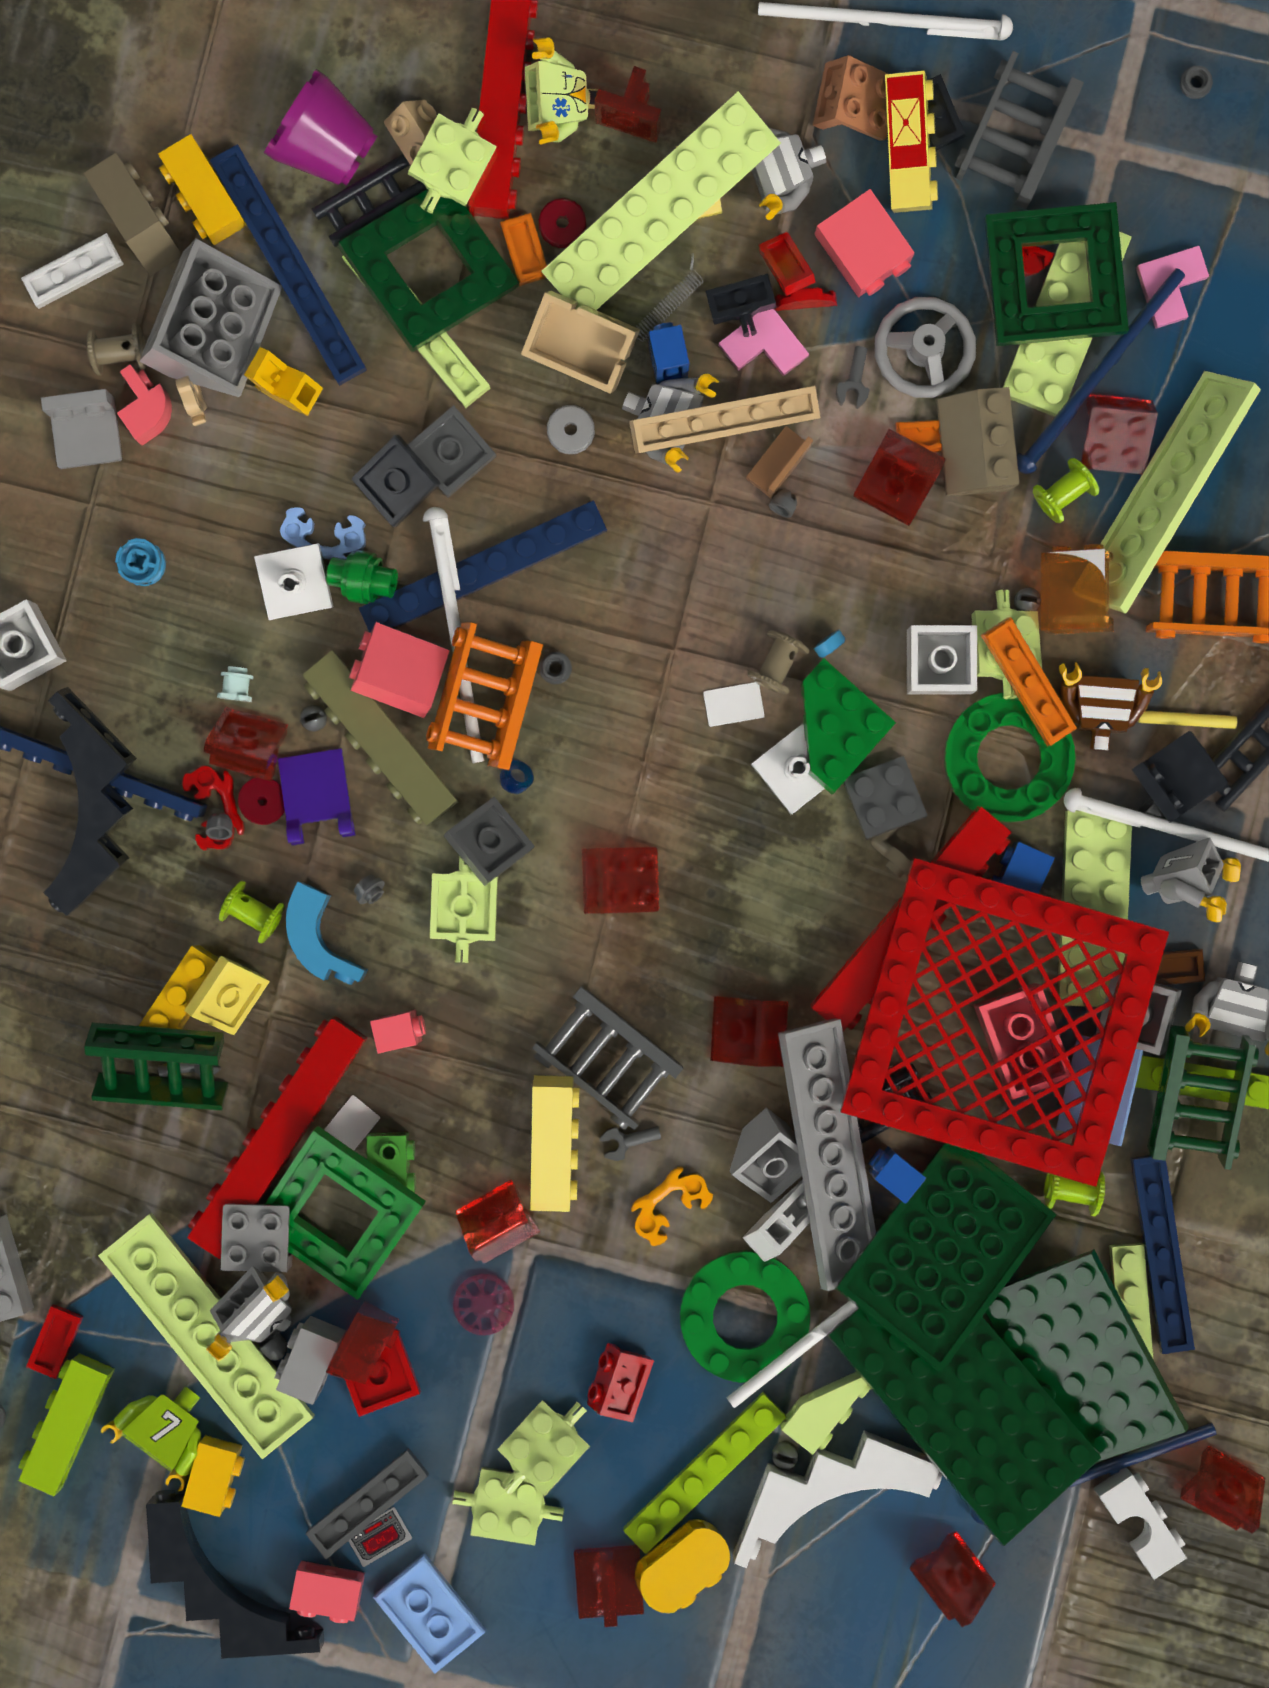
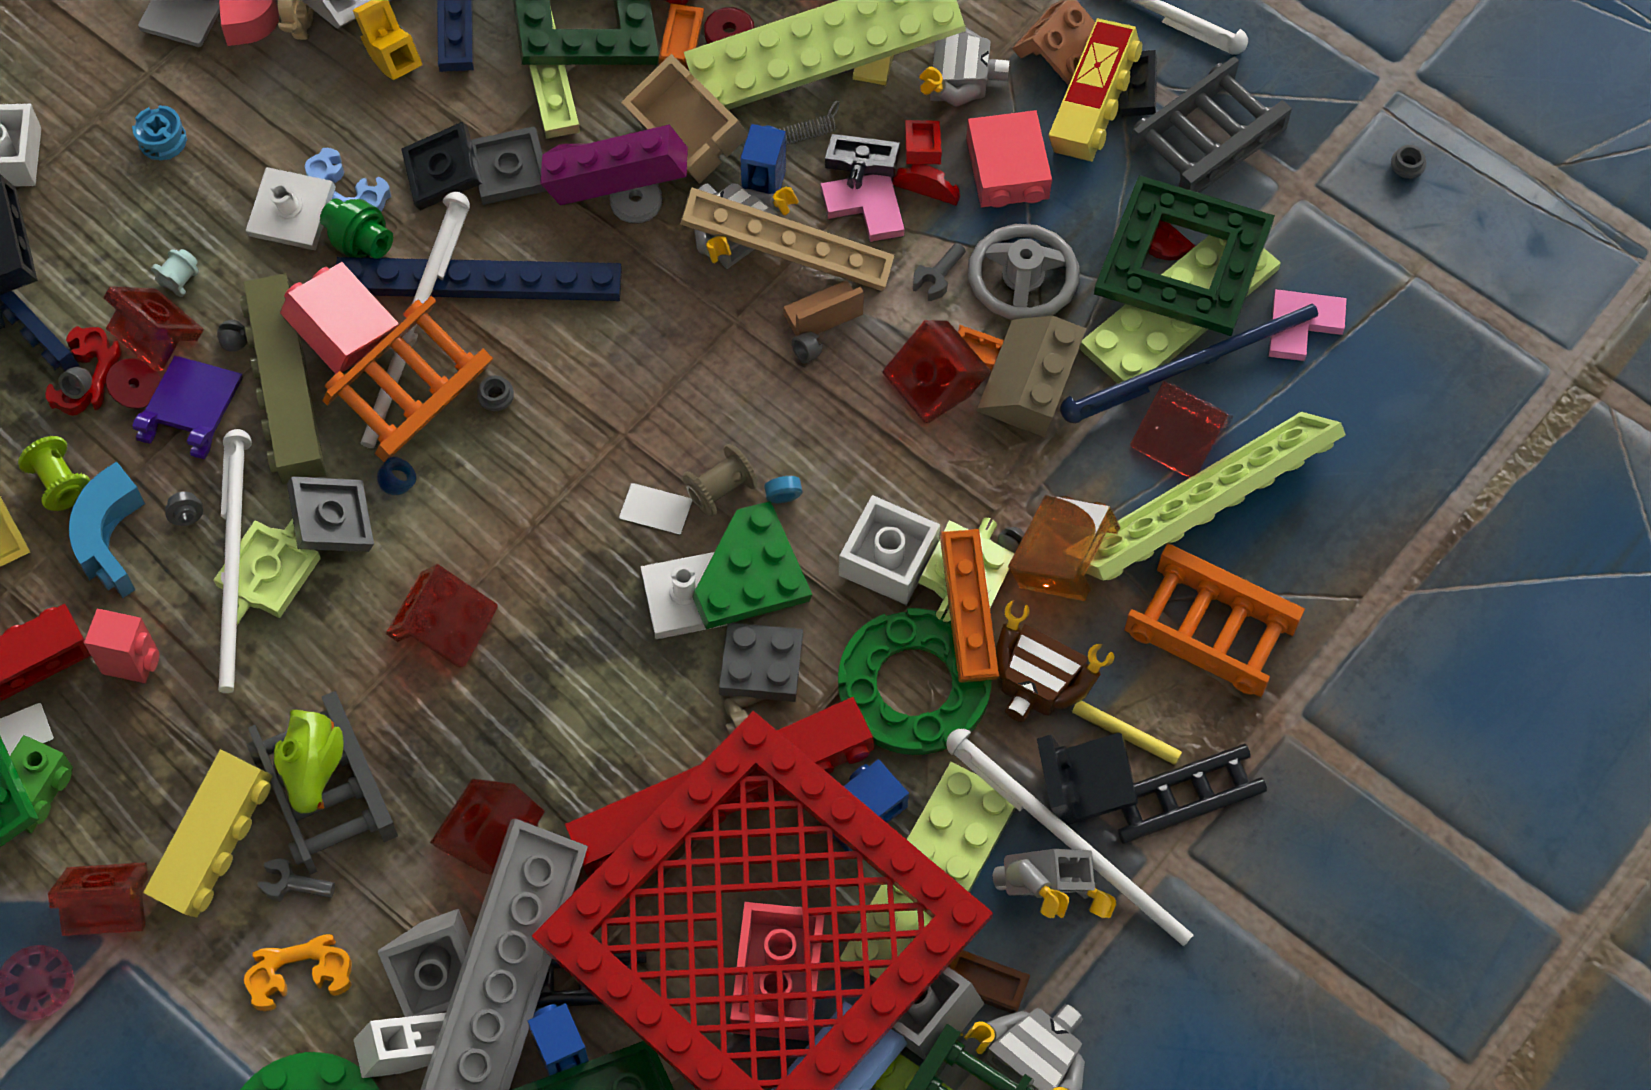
camera: 25 degrees right, 25 degrees down
(408, 873) = (231, 509): none -> white bar
(533, 420) = (613, 164): none -> magenta wedge
(595, 1055) = (308, 758): none -> lime animal
(1066, 490) = (1101, 452): lime hose -> none

